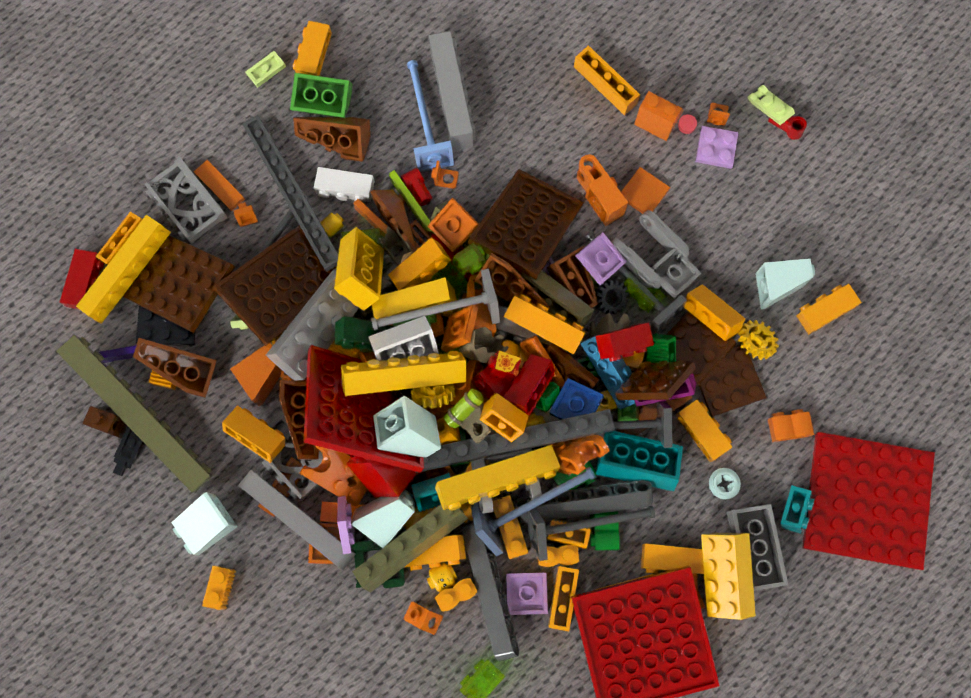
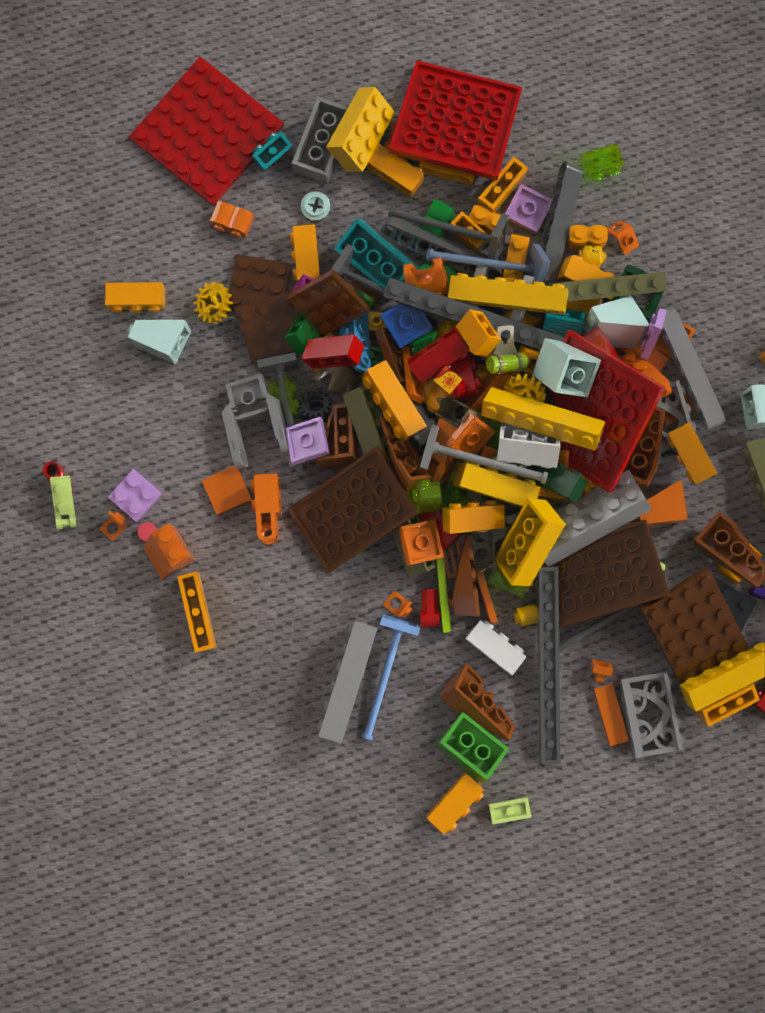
camera: 155 degrees left, 5 degrees up
(714, 312) = (237, 343): light orange brick -> none

